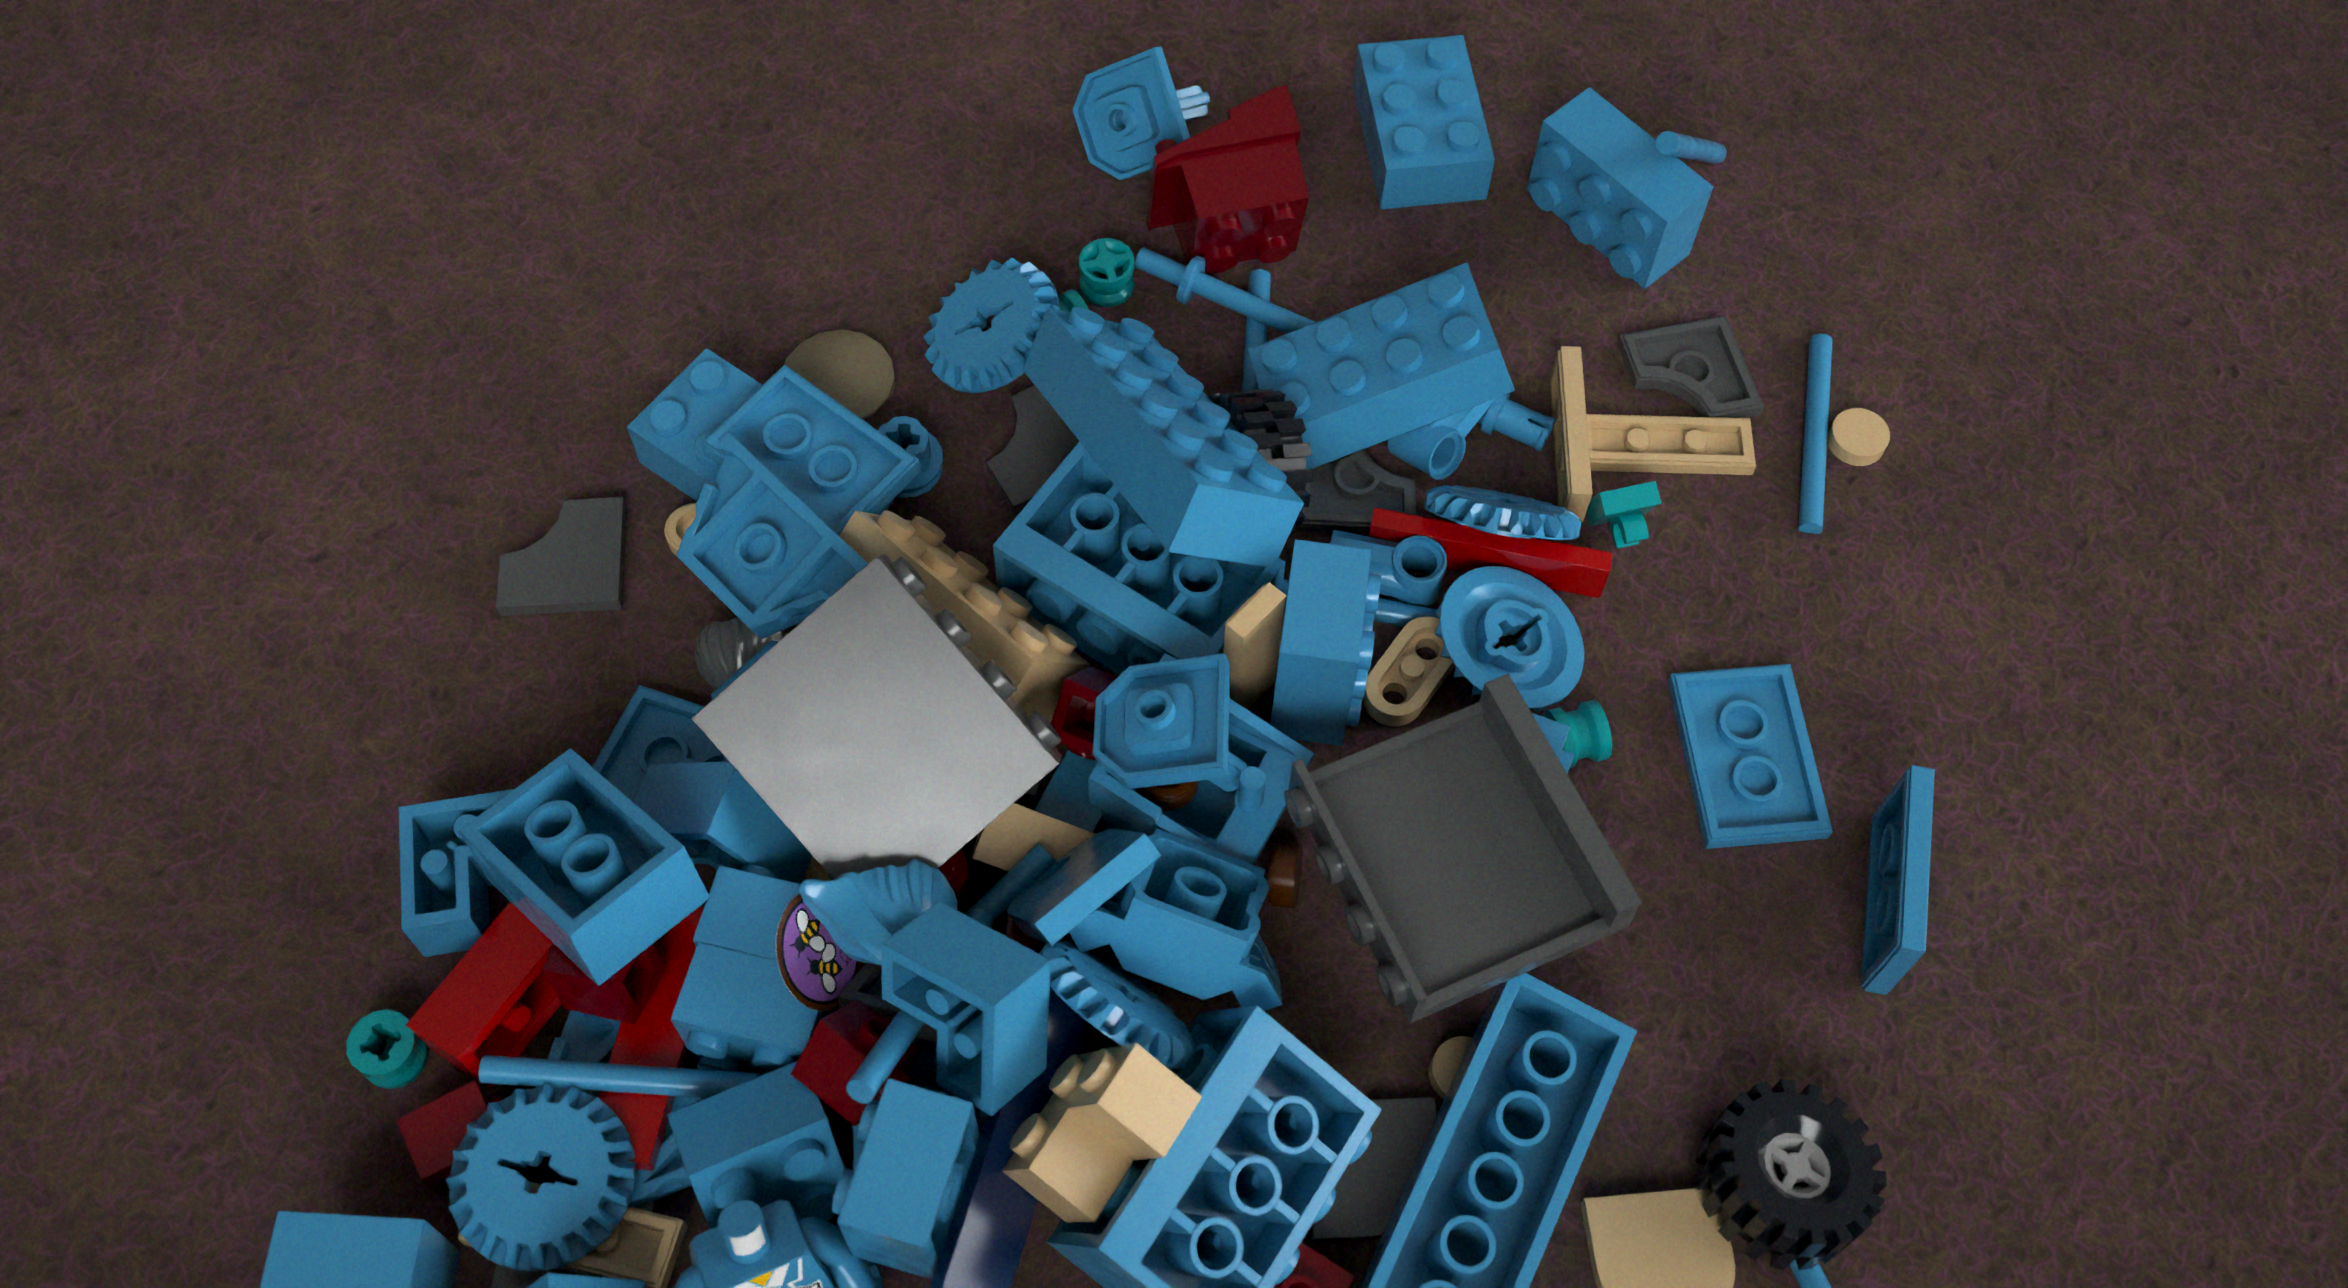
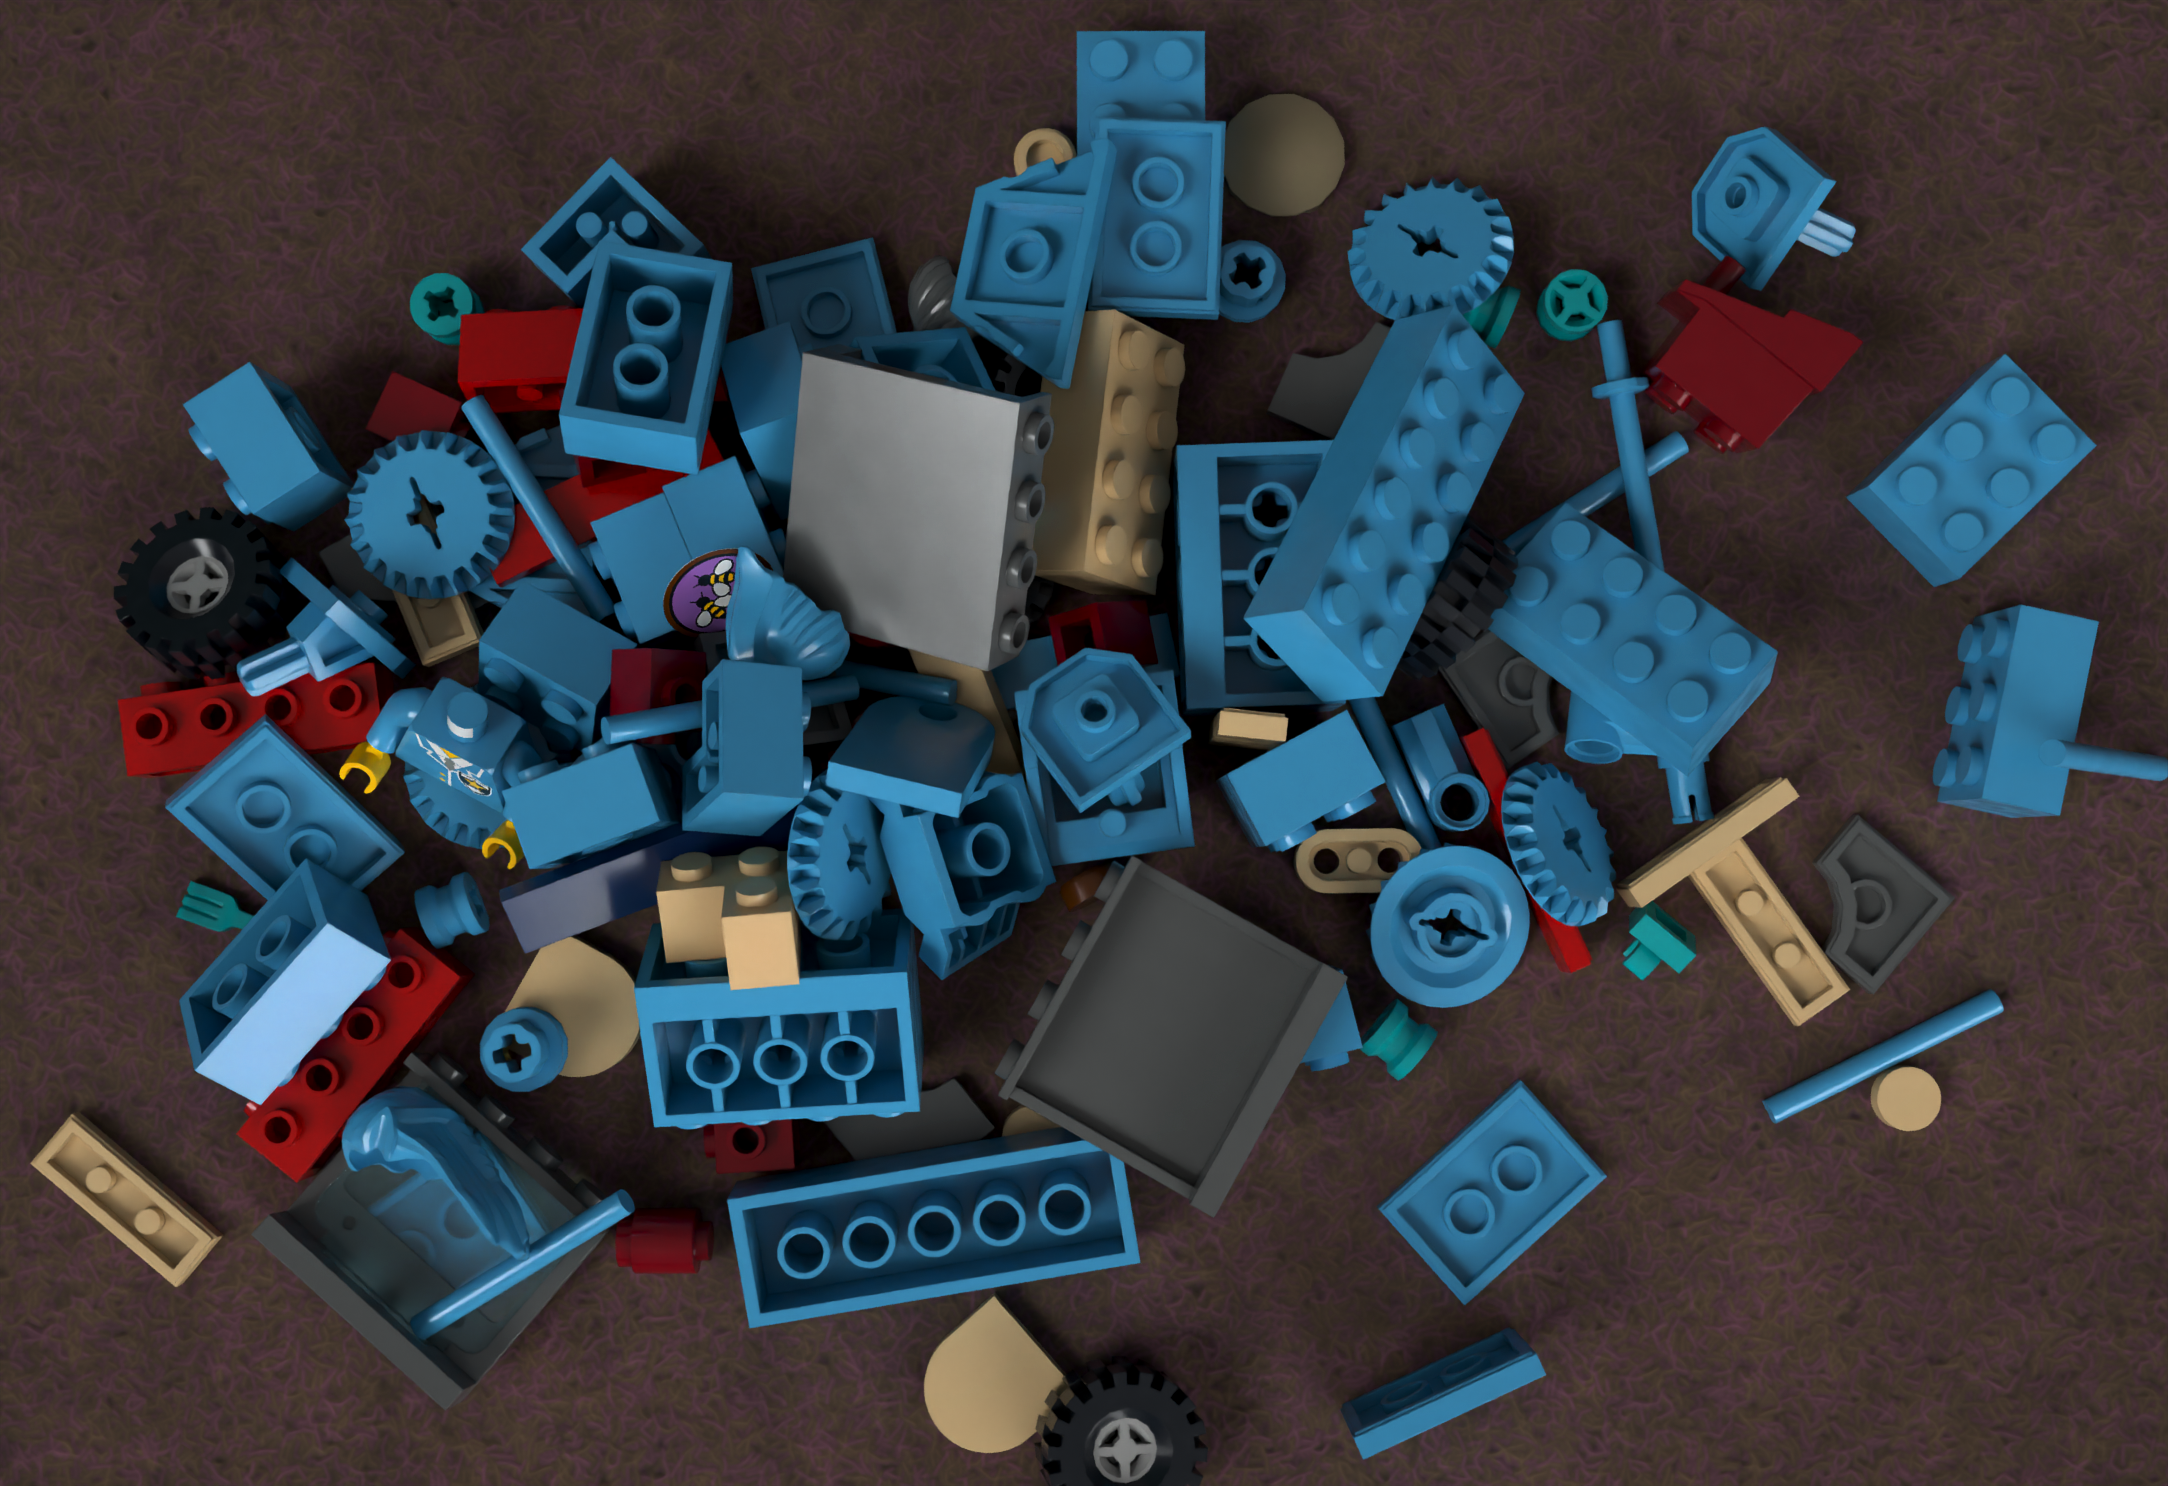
camera: 55 degrees right, 25 degrees up
(572, 566) = (939, 86): dark grey tile -> none

